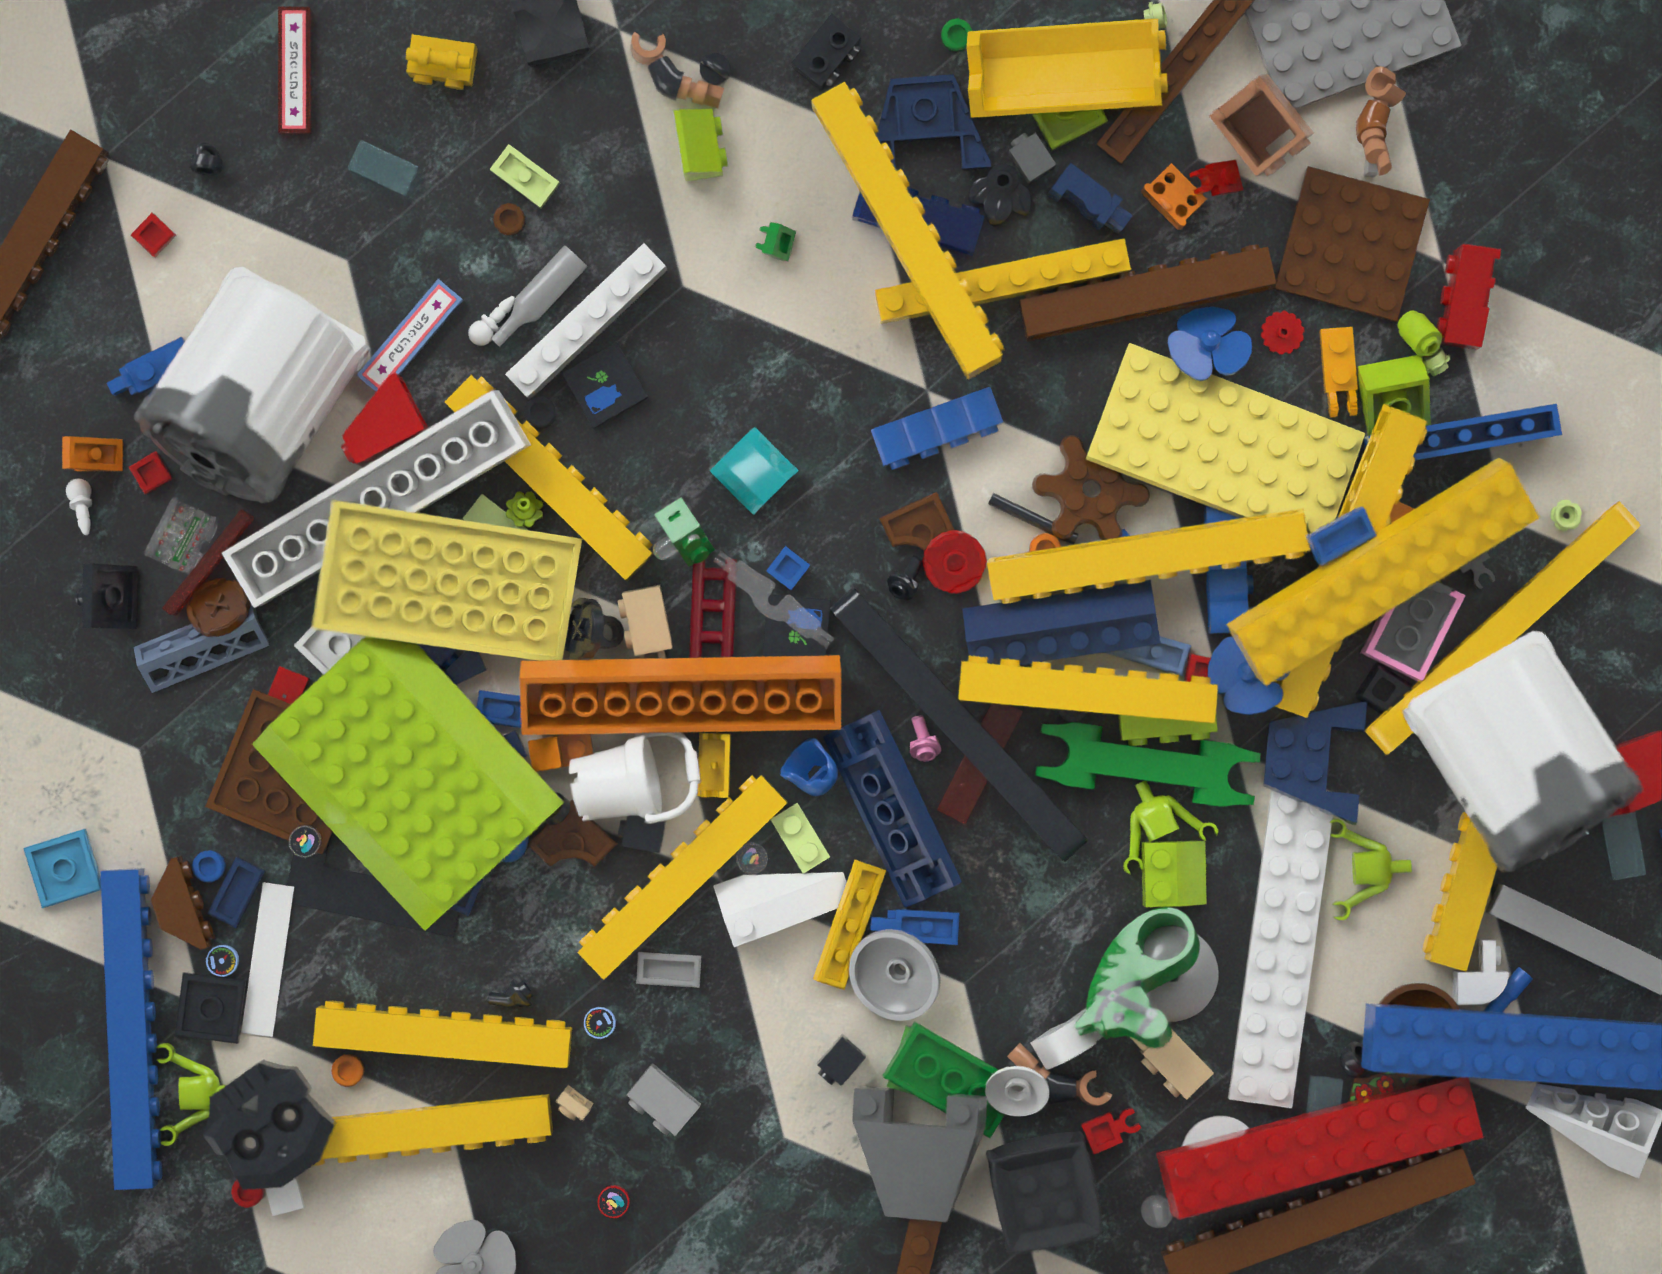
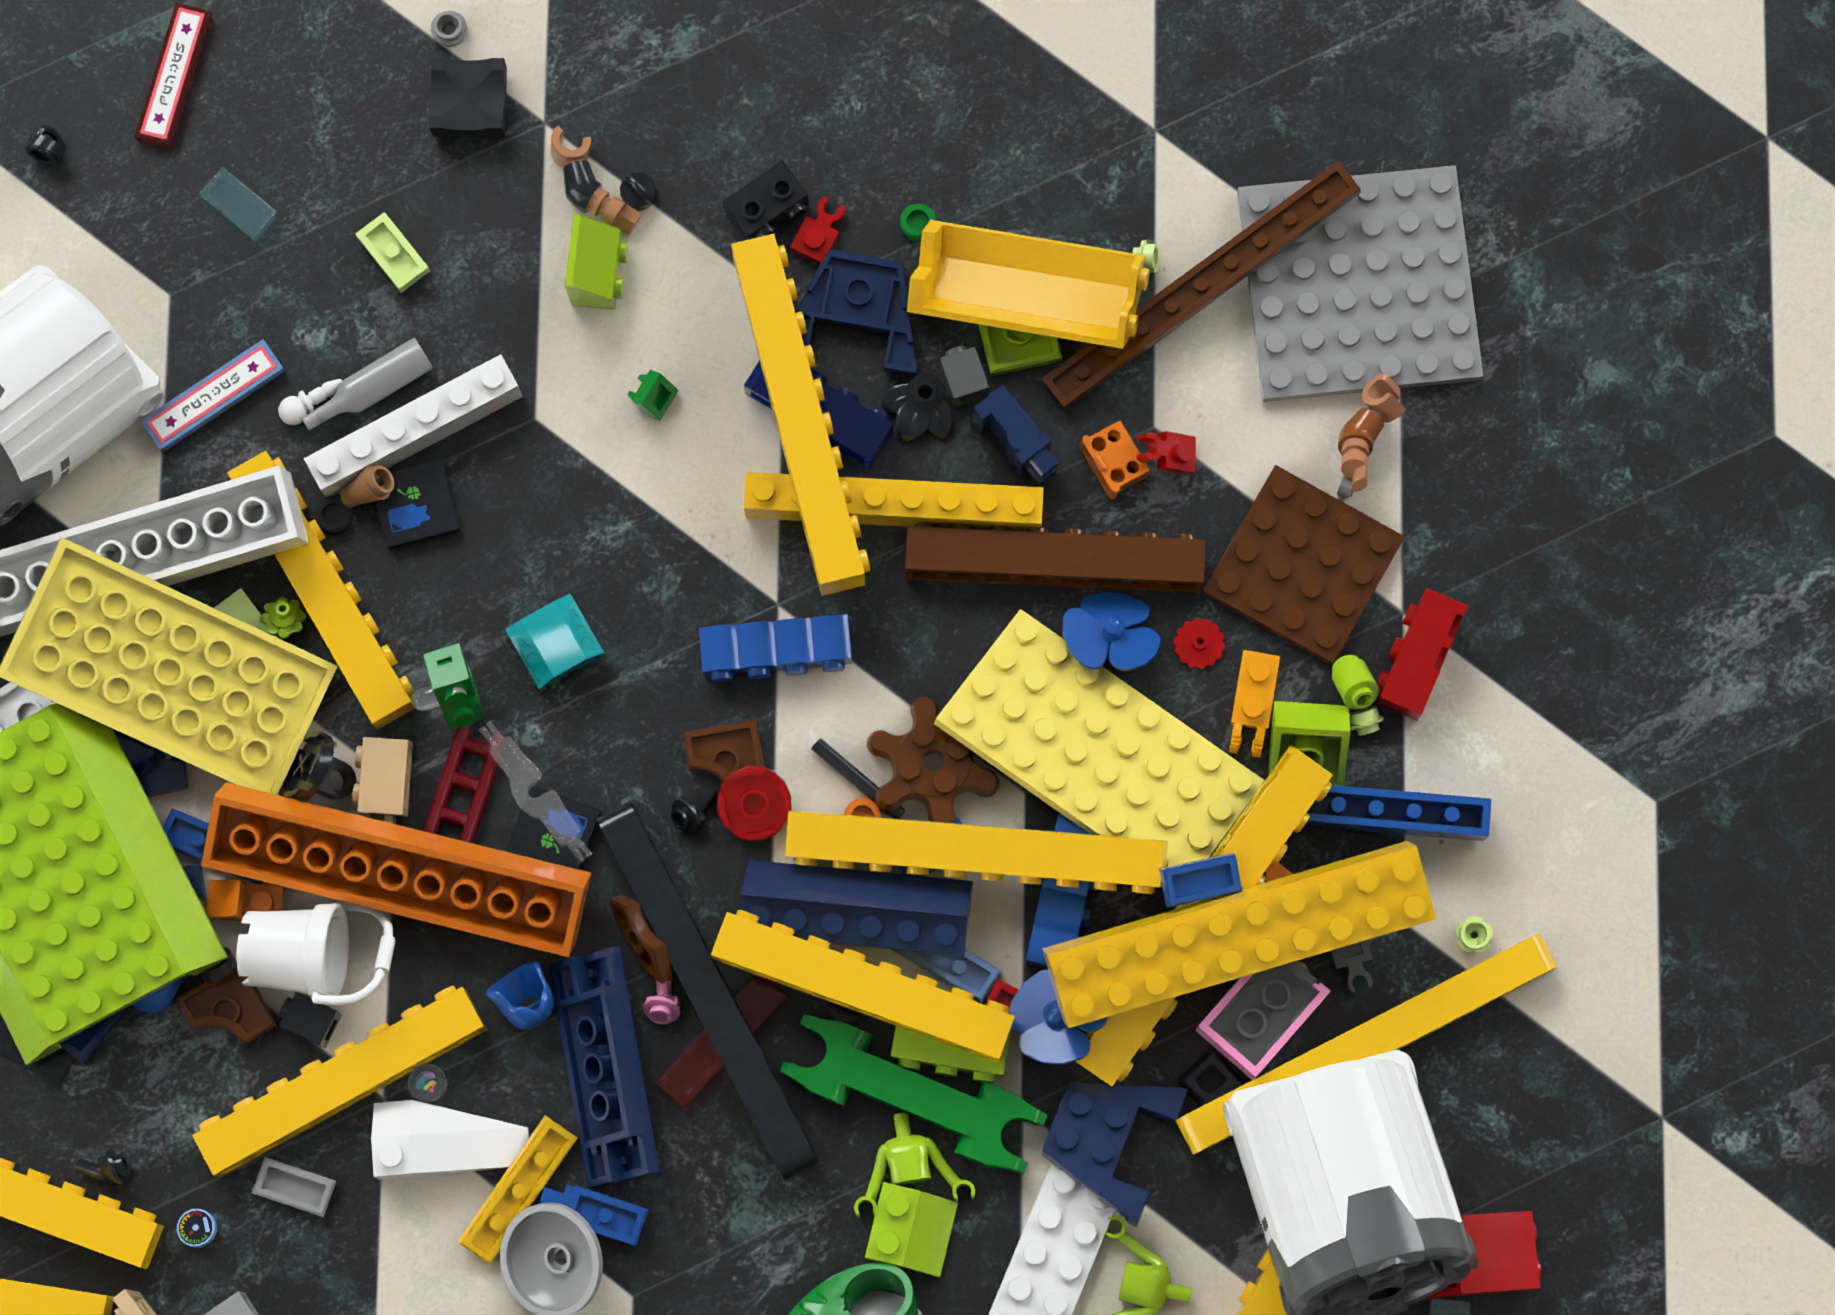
camera: 15 degrees right, 10 degrees down
(383, 423) = (150, 473): red slope -> none
(441, 61) = (336, 104): yellow brick -> none
(509, 219) = (362, 296): reddish brown tile -> none
(566, 381) = (369, 486): none -> medium nougat cone
(714, 765) = (415, 963): yellow hinge -> none
(788, 568) = (562, 761): blue plate -> none
(800, 838) = (489, 1074): yellowish green plate -> none
(875, 69) = (817, 235): none -> red plate
(884, 688) = (641, 938): none -> reddish brown tile
(1256, 120) = (1232, 402): nougat container -> none

